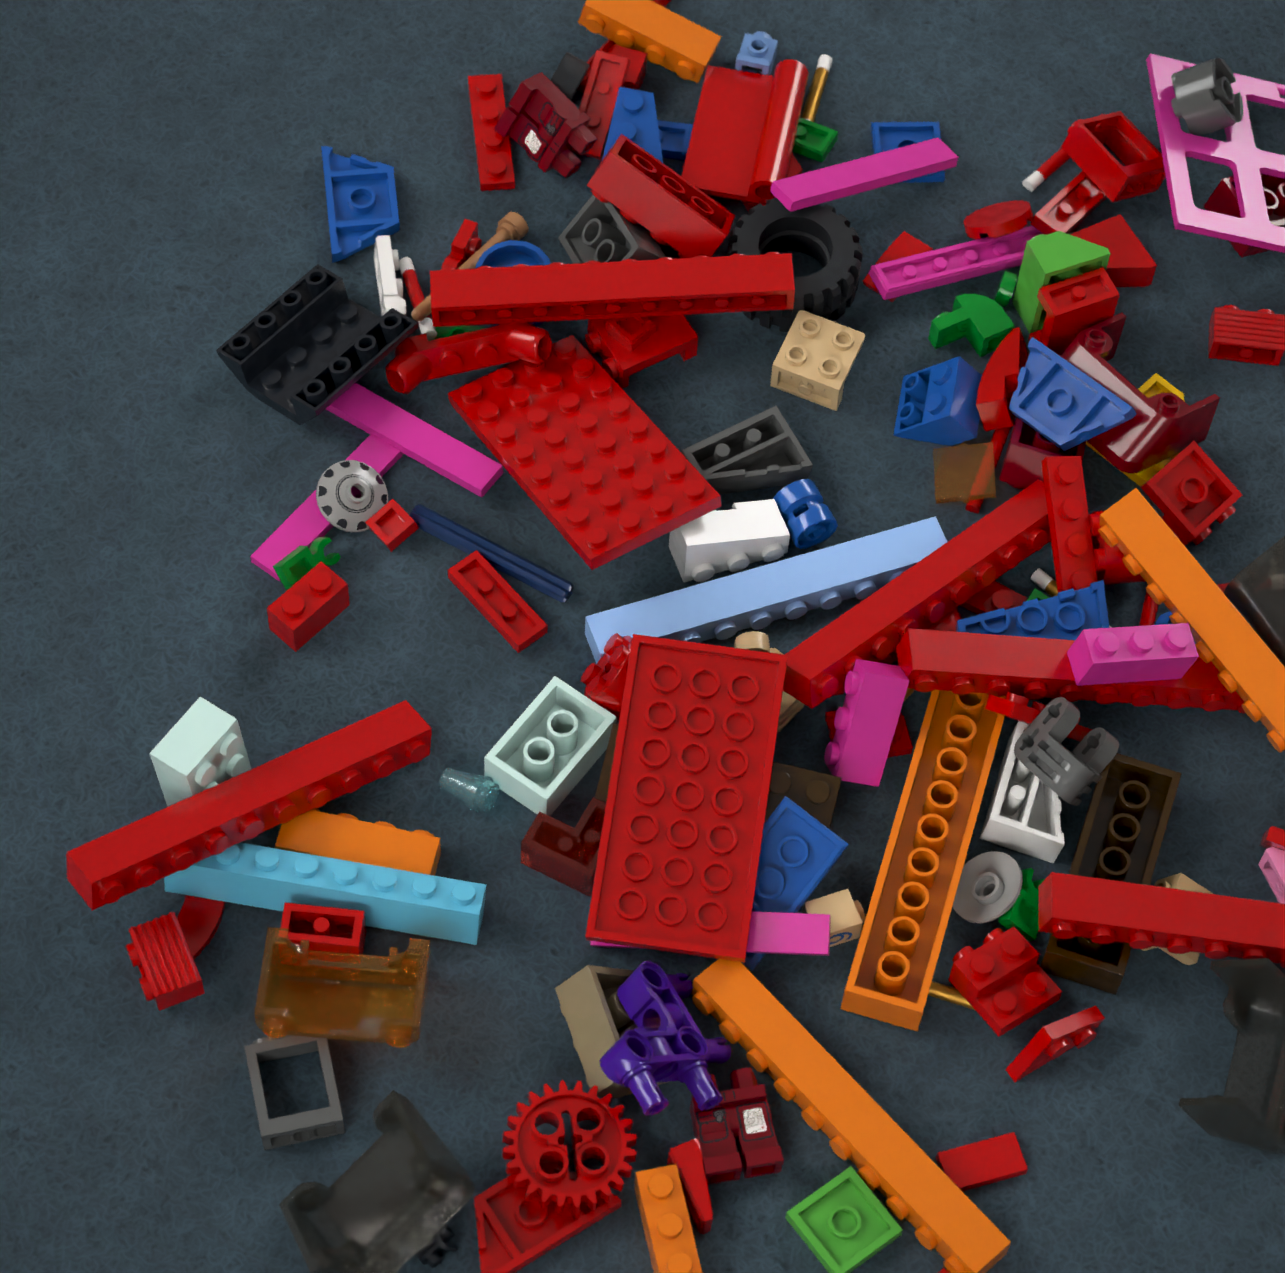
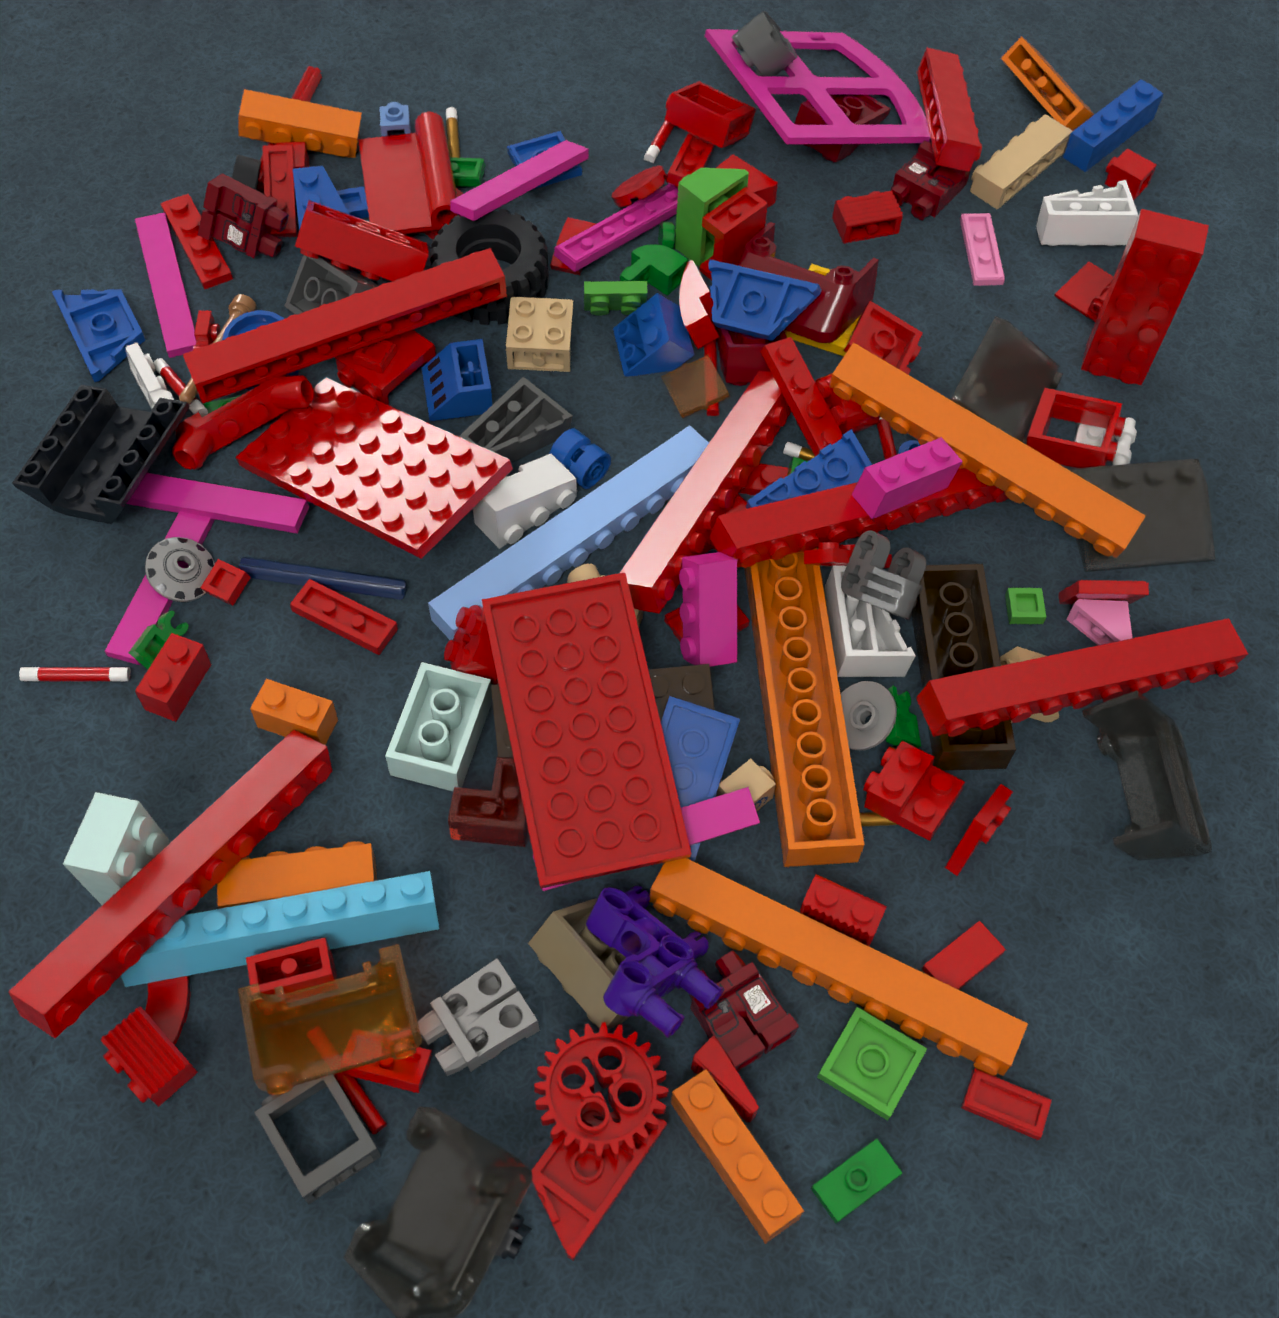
camera: 20 degrees left, 0 degrees up
(214, 569) = (75, 674): none -> red bar
(343, 1074) = (361, 1102): none -> red bar
(390, 1062) = (398, 1073): none -> red plate
(407, 677) = (286, 709): none -> orange brick
(443, 172) = (166, 284): none -> dark pink tile
(471, 789) = (384, 789): clear light blue cone -> none
(483, 1039) = (480, 1018): none -> light grey hips
(708, 385) = (457, 381): none -> blue slope
(877, 1070) = (842, 909): none -> red brick
(905, 340) = (614, 295): none -> bright green plate
(1217, 834) = (1025, 606): none -> bright green plate

